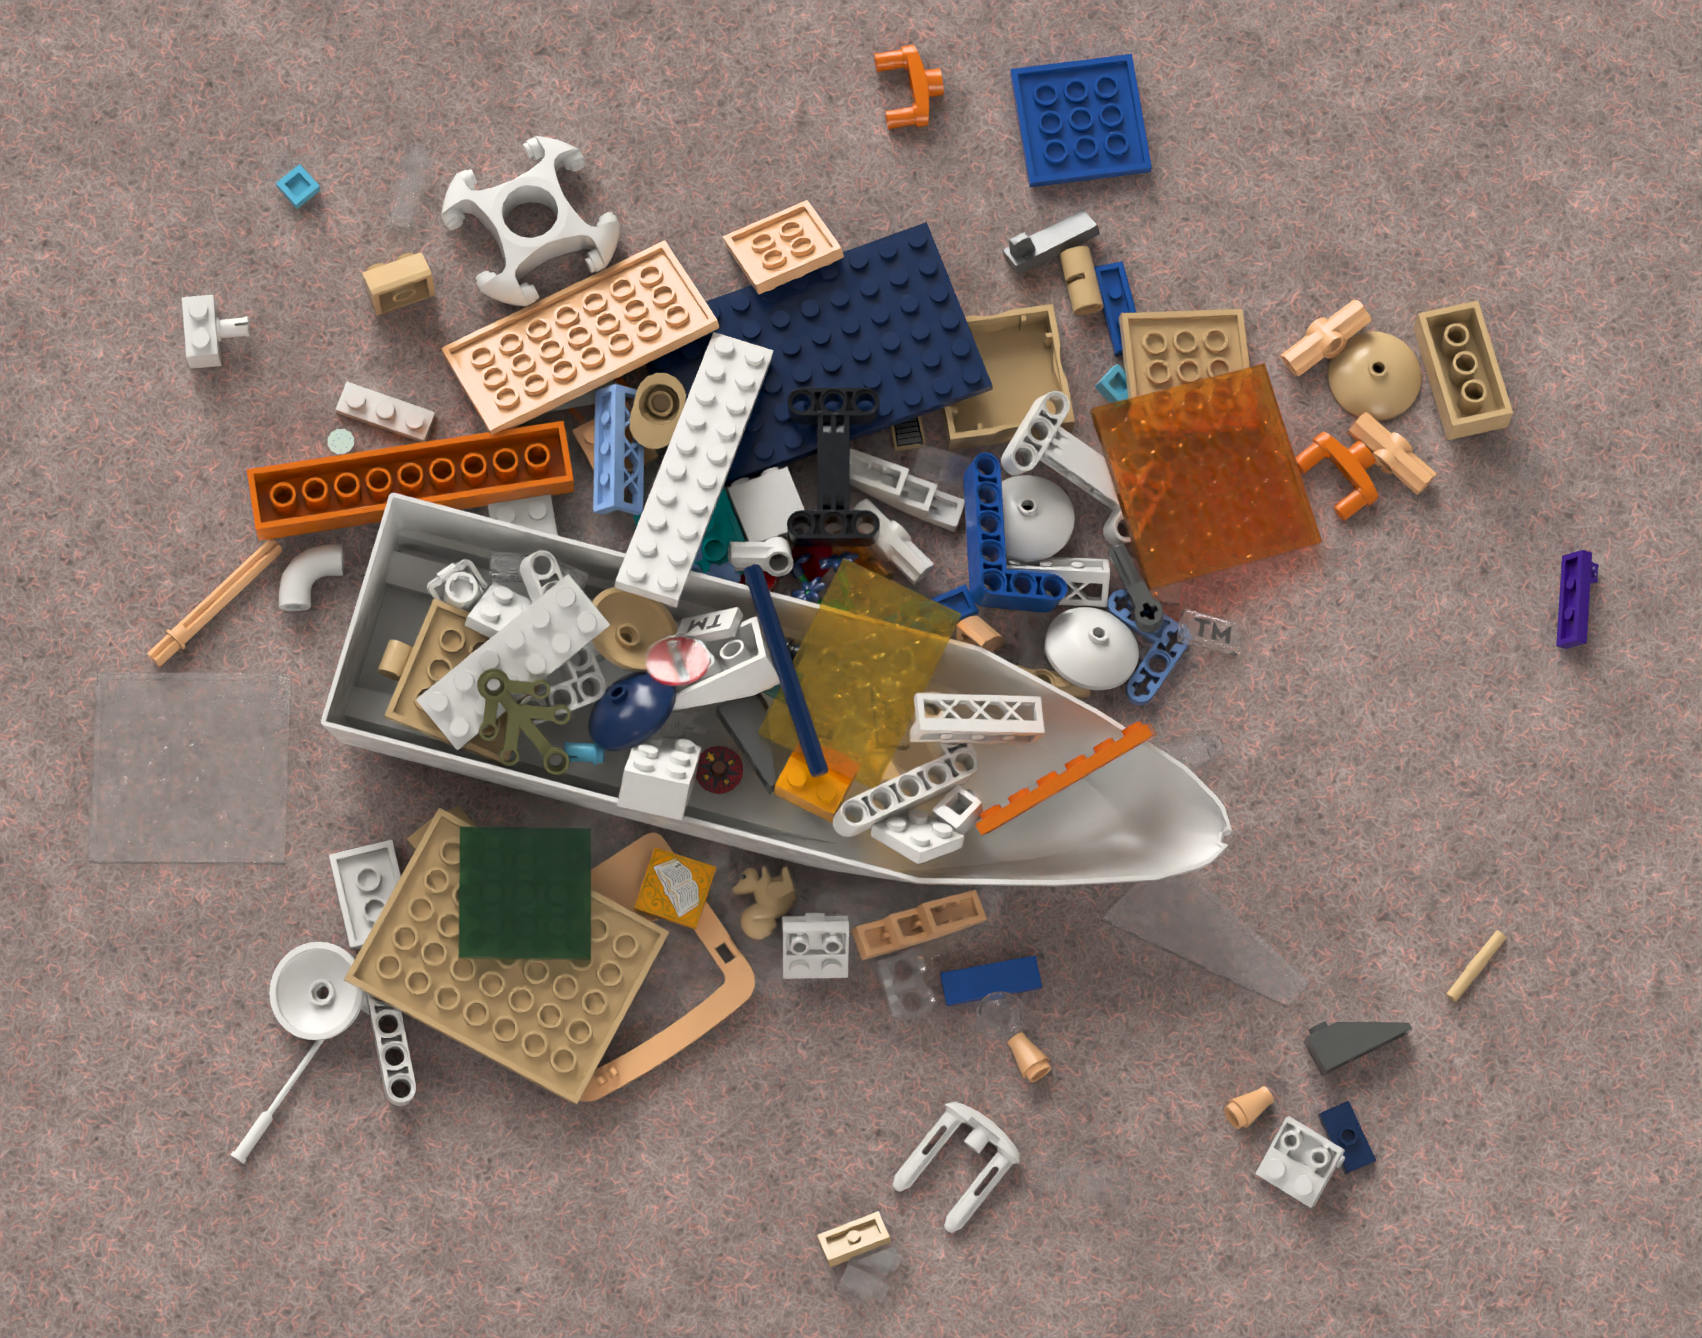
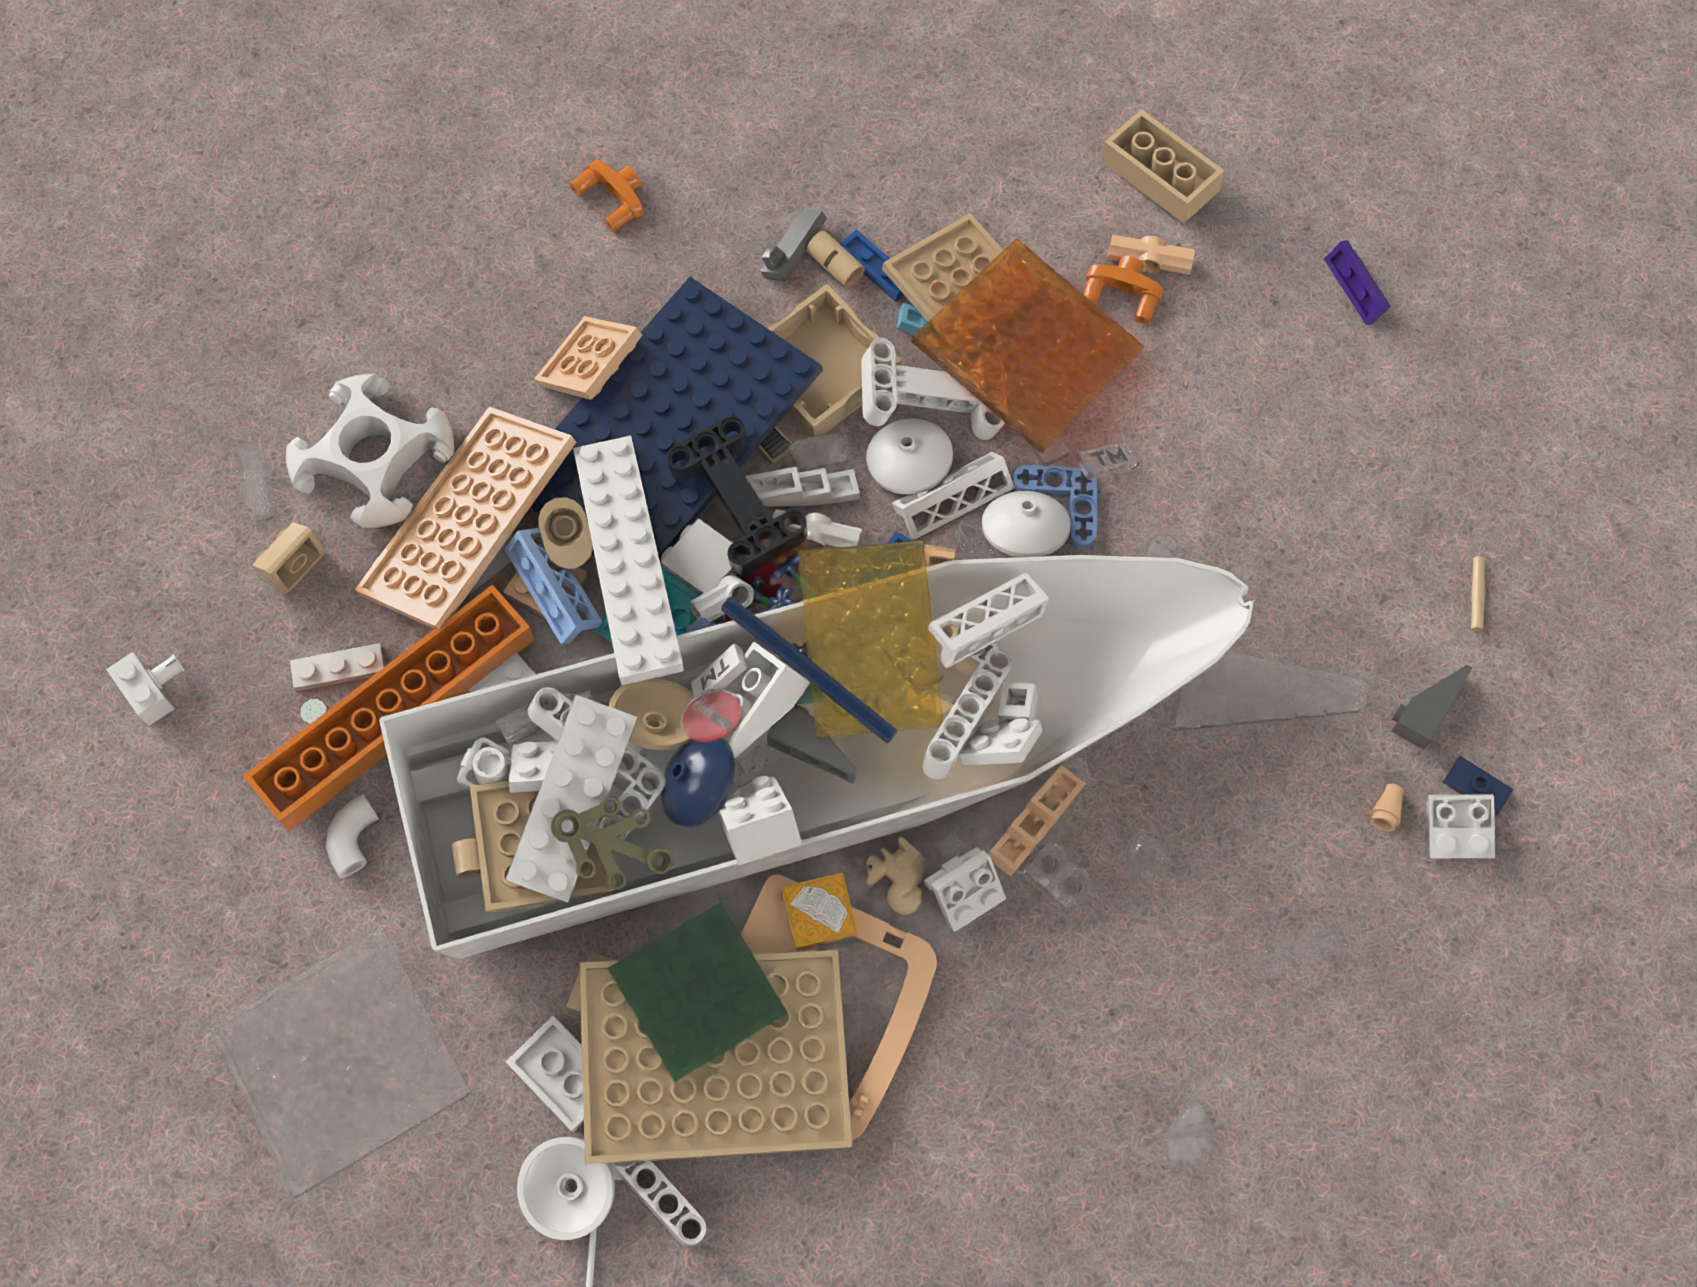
camera: 25 degrees left, 5 degrees down
(214, 602) = (280, 907): light nougat axle -> none
(298, 186) = (159, 530): medium azure plate -> none
(584, 752) = (678, 839): medium azure pin -> none
(719, 770) = (801, 787): piece -> none
(815, 794) = (887, 760): light orange slope -> none
(853, 1239) = (1153, 1116): plate -> none
(978, 981) = (1118, 830): blue tile -> none
(983, 1132) = (1197, 958): white piece -> none
(993, 546) = (910, 507): blue beam -> none
(1029, 1058) = (1193, 875): light nougat cone -> none
(1054, 783) = (1097, 611): orange plate -> none
(1080, 120) = (758, 148): blue plate -> none
(1136, 590) = (1035, 459): dark grey connector -> none
(1326, 338) = (1046, 199): light nougat piece -> none
(1363, 390) = (1096, 220): tan dish -> none

